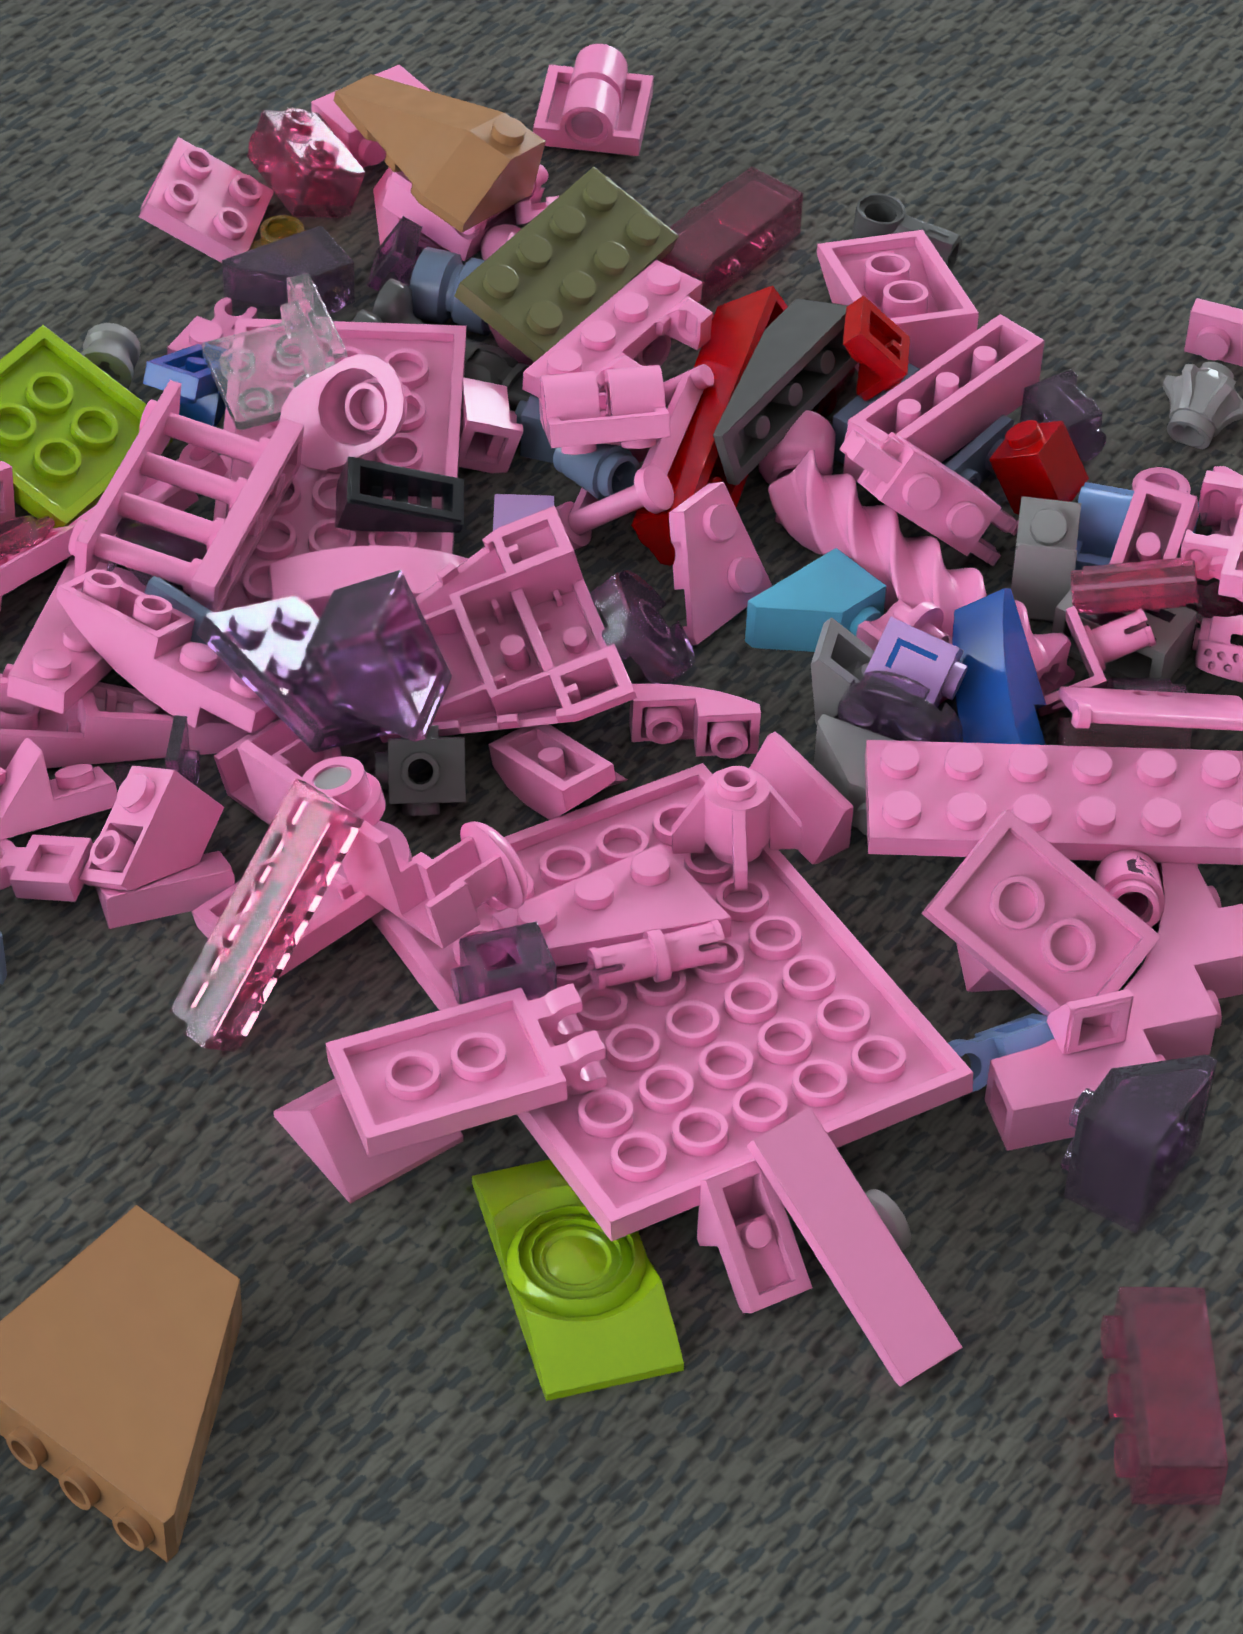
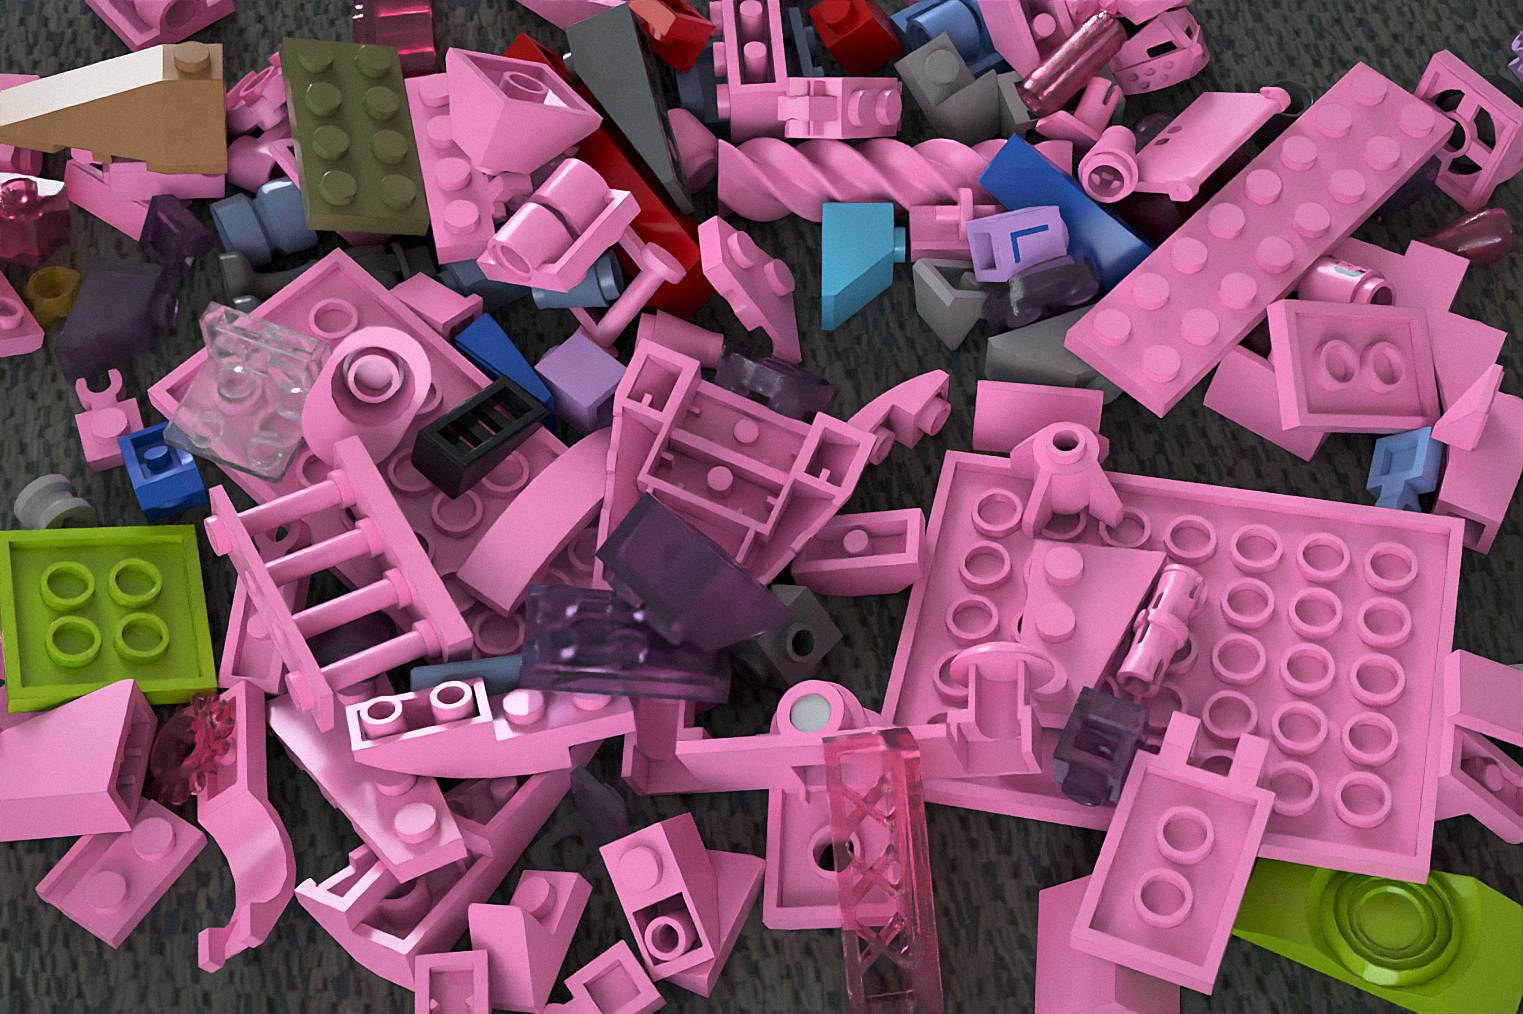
camera: 45 degrees left, 10 degrees up
(488, 473) = (496, 356): none -> blue slope
(615, 549) = (681, 337): none -> bright pink cone
(680, 317) = (512, 112): none -> bright pink slope
(1057, 665) = (1110, 166): none -> bright pink cone

